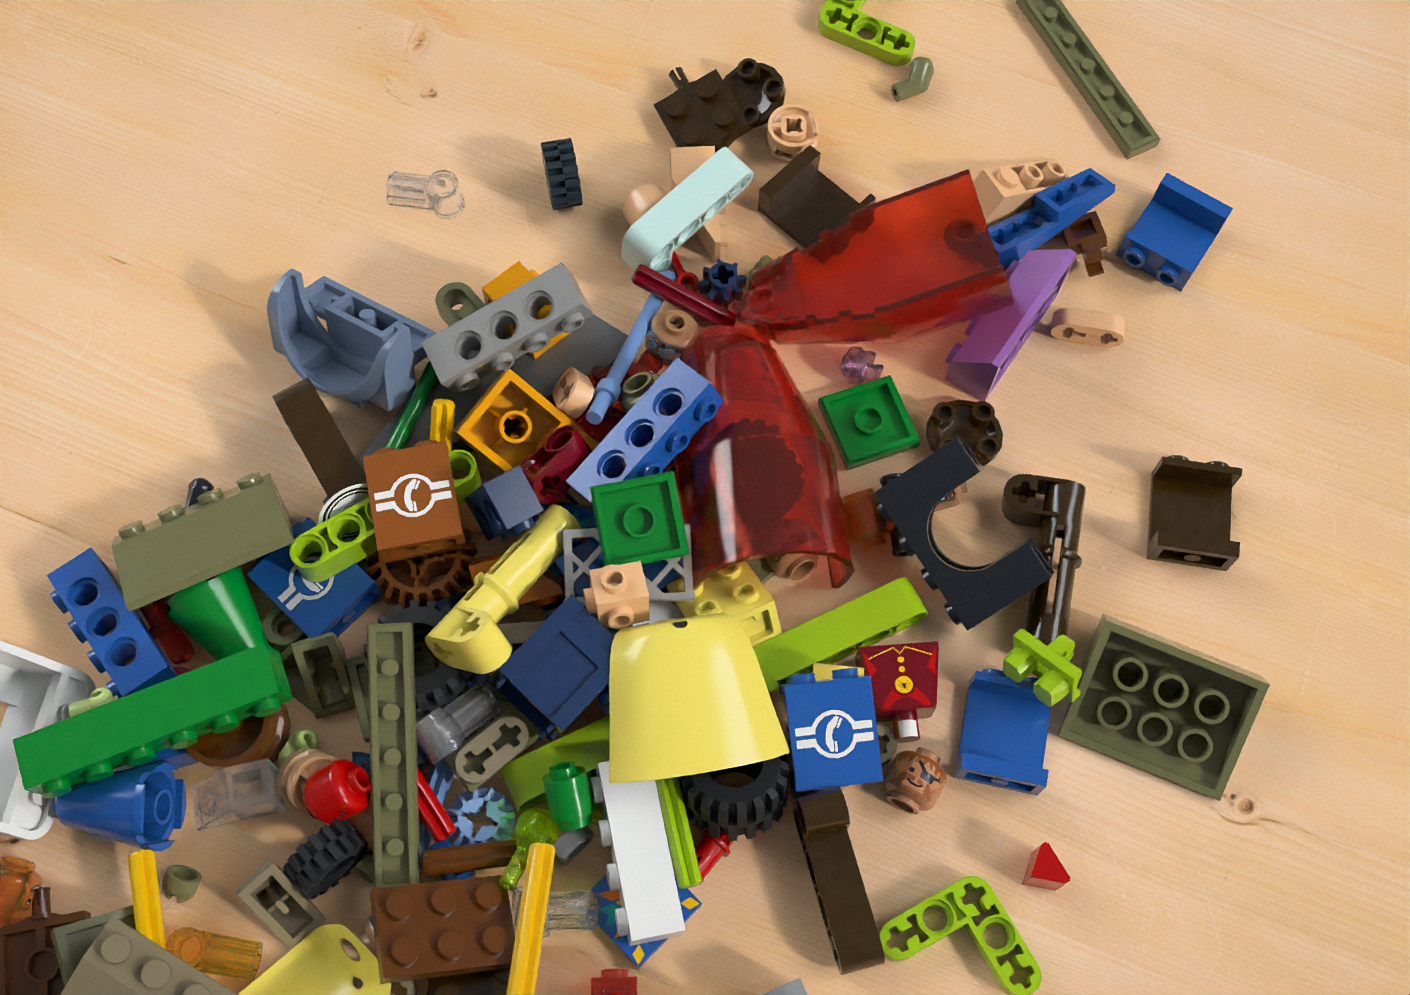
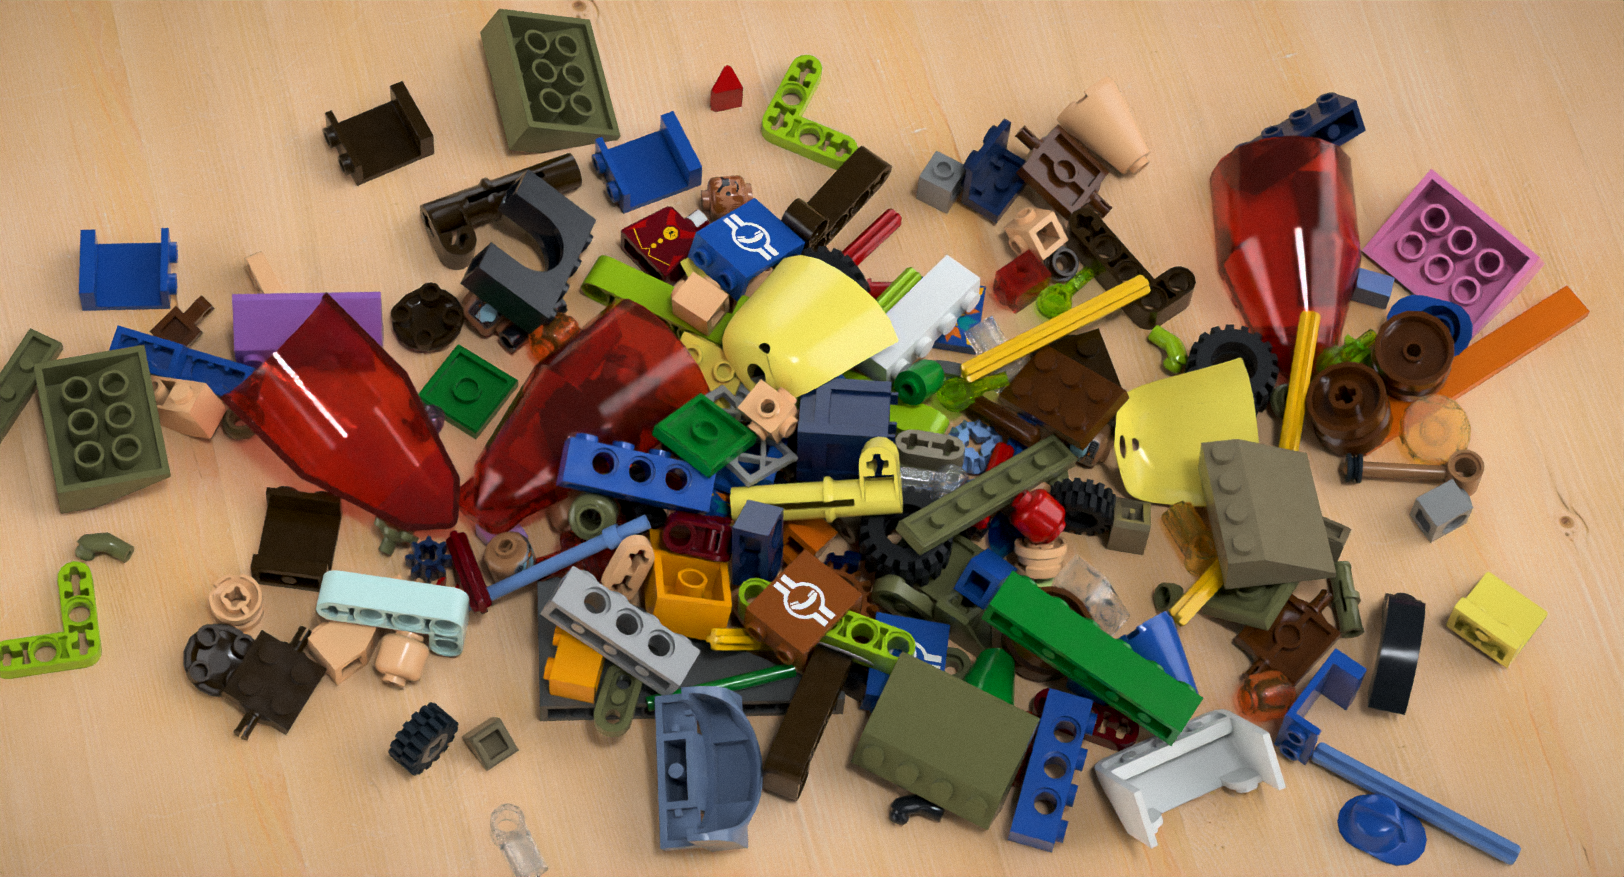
camera: 130 degrees left, 5 degrees down
(98, 697) = (1108, 728): yellowish green arm -> none
(333, 714) = (983, 577): none -> blue brick
(355, 633) = (901, 599): none -> olive plate
(531, 235) = (490, 742): none -> dark tan slope
(775, 885) = (873, 236): none -> red axle
(800, 644) = (700, 302): none -> light nougat brick
(1024, 114) = (101, 426): none -> olive slope
(1049, 663) = (595, 133): lime hips -> none

